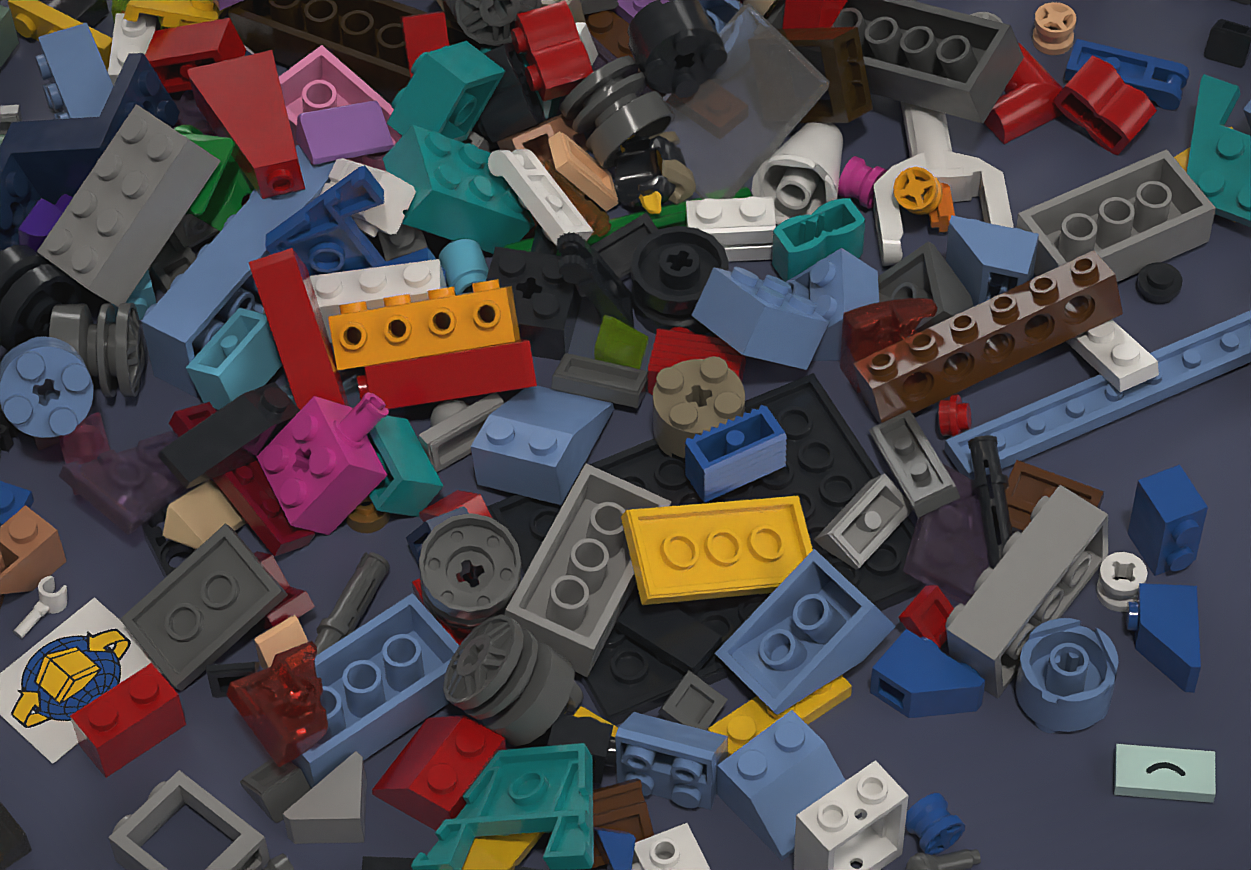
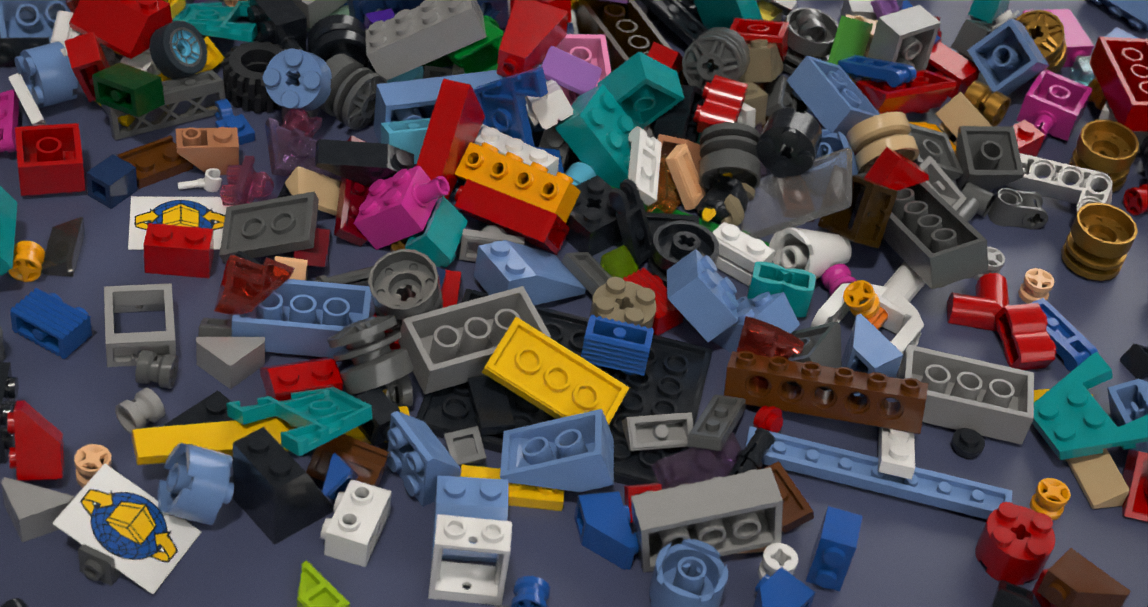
camera: 30 degrees right, 10 degrees down
(89, 559) = (245, 184): none -> clear pink hips

